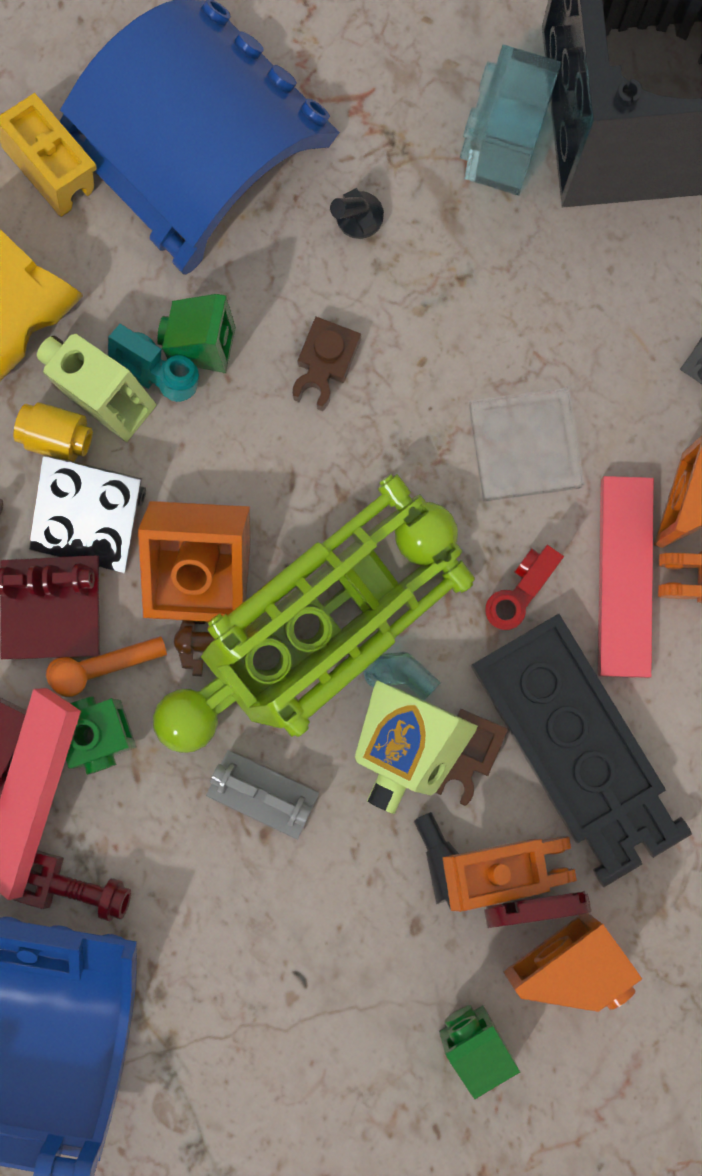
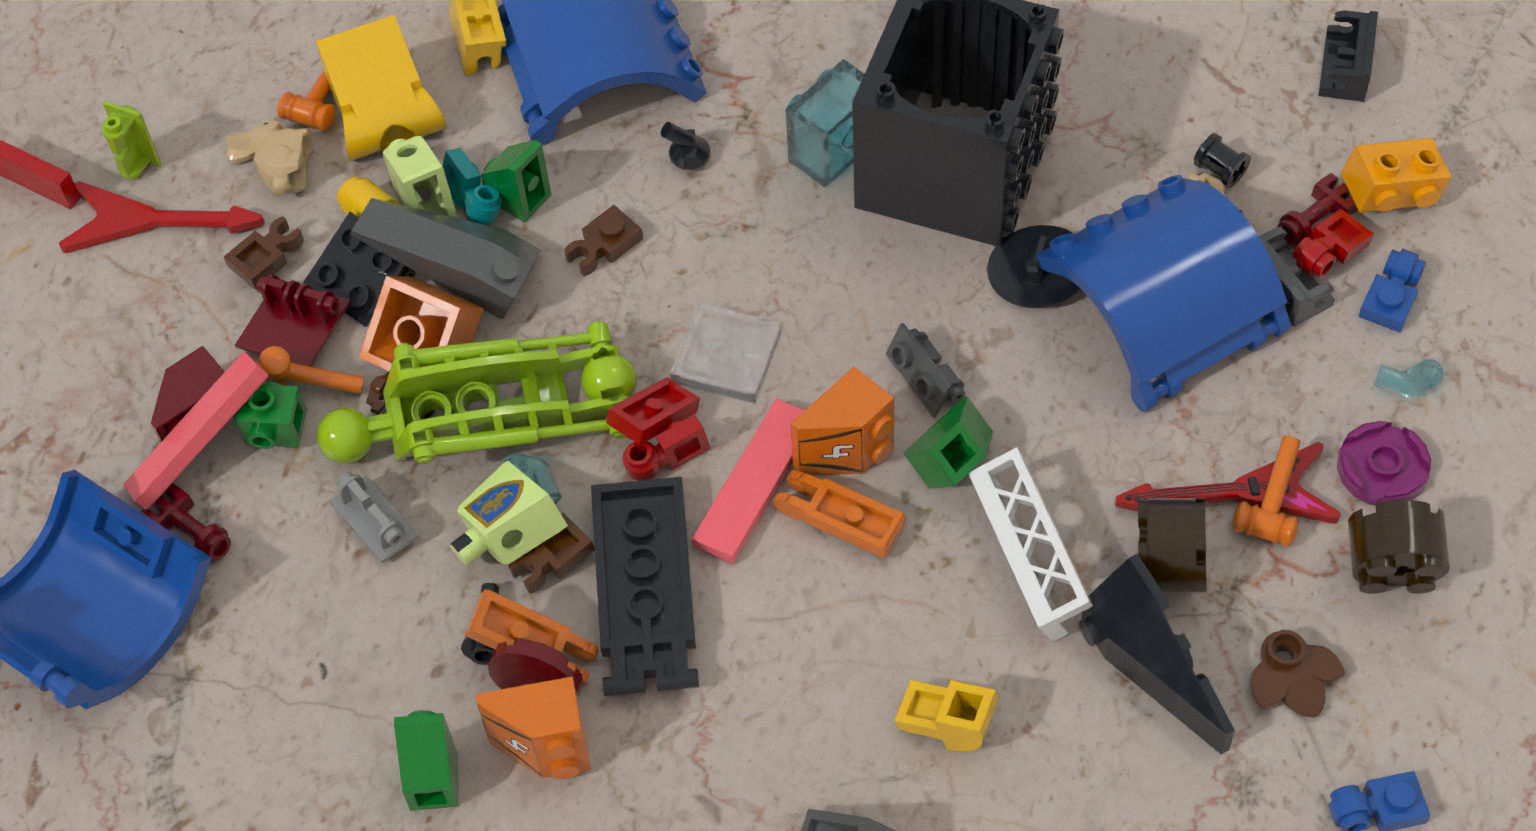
camera: 25 degrees right, 25 degrees down
(190, 453) = (461, 255): none -> dark grey wedge
(492, 552) = (652, 410): none -> red plate

